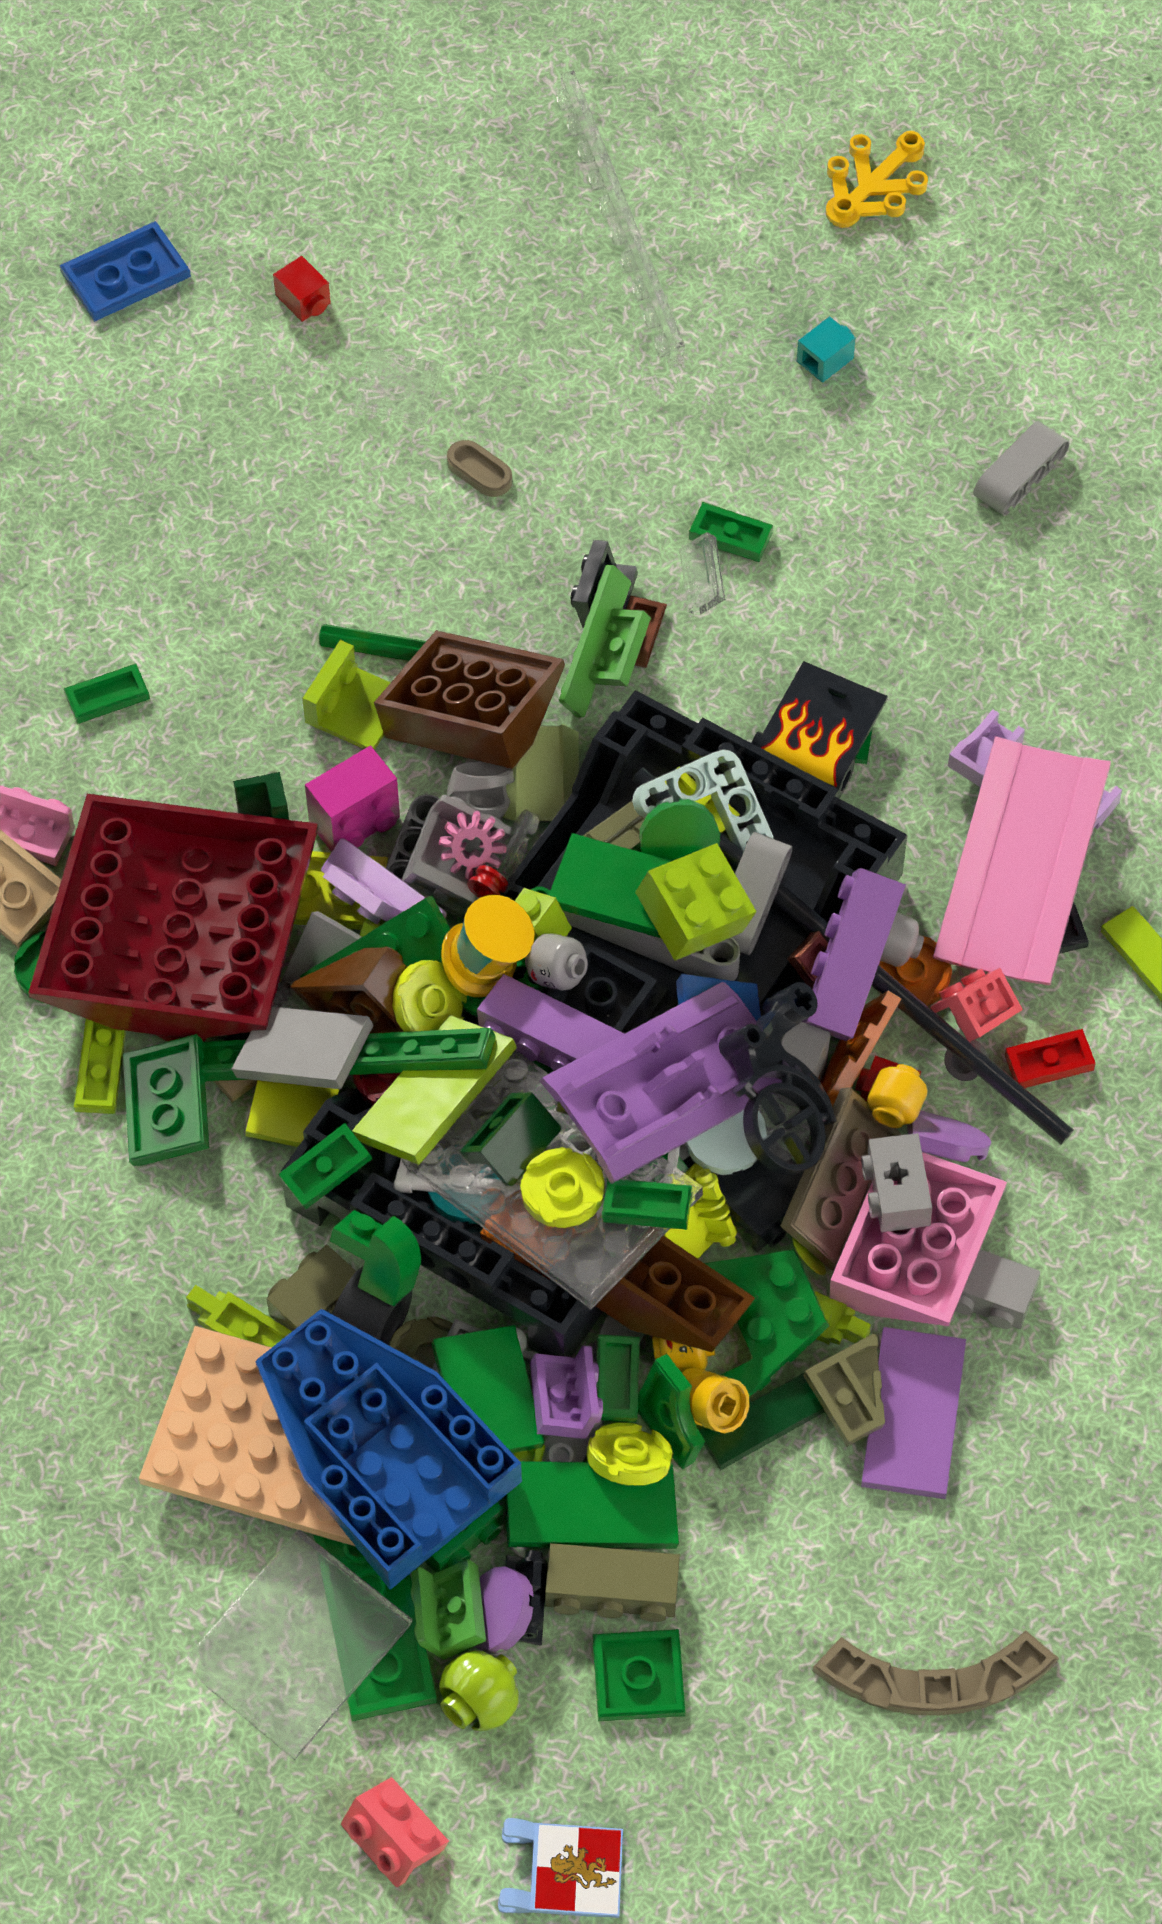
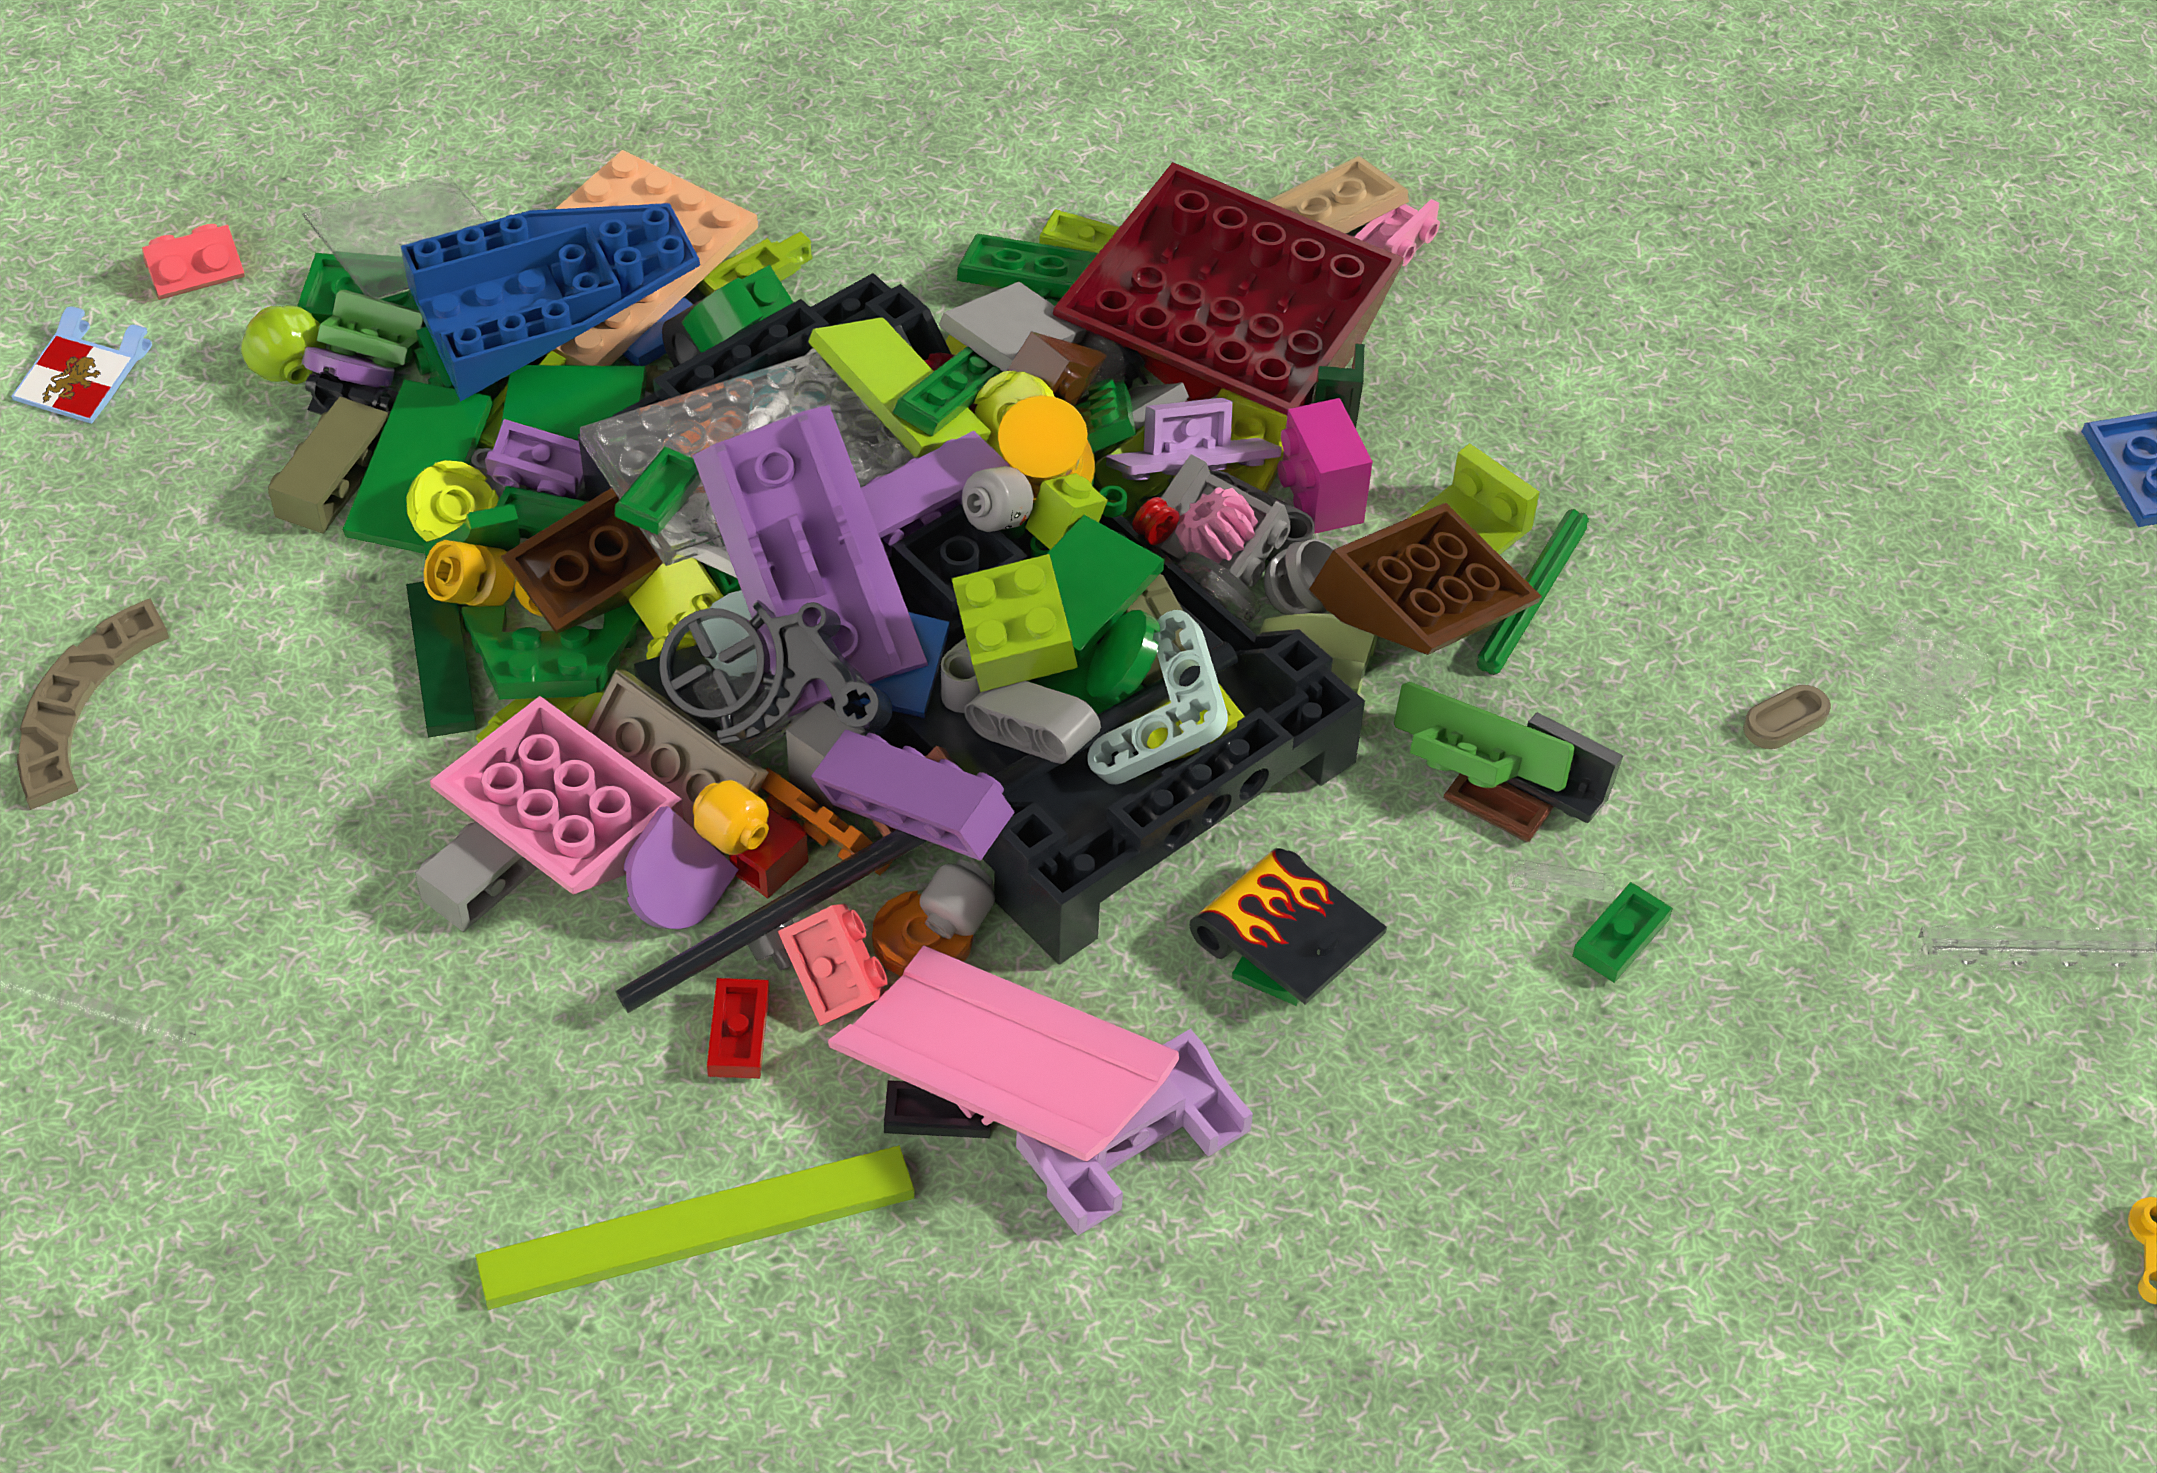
camera: 105 degrees right, 10 degrees down
(106, 693) = (1551, 334): green tile -> none
(302, 289) = (2092, 605): red brick -> none
(325, 1166) = (850, 287): green plate -> none
(512, 1137) = (788, 391): dark green panel -> none
(574, 1191) = (690, 426): neon yellow tile -> none
(638, 1675) = (230, 470): green tile -> none
(826, 349) = (1901, 1119): teal brick -> none
(850, 1389) = (417, 699): olive wing -> none
(902, 1161) = (611, 770): light grey brick -> none
(920, 1412) = (366, 766): medium lavender tile -> none
(1020, 466) = (1650, 1290): light grey beam -> none

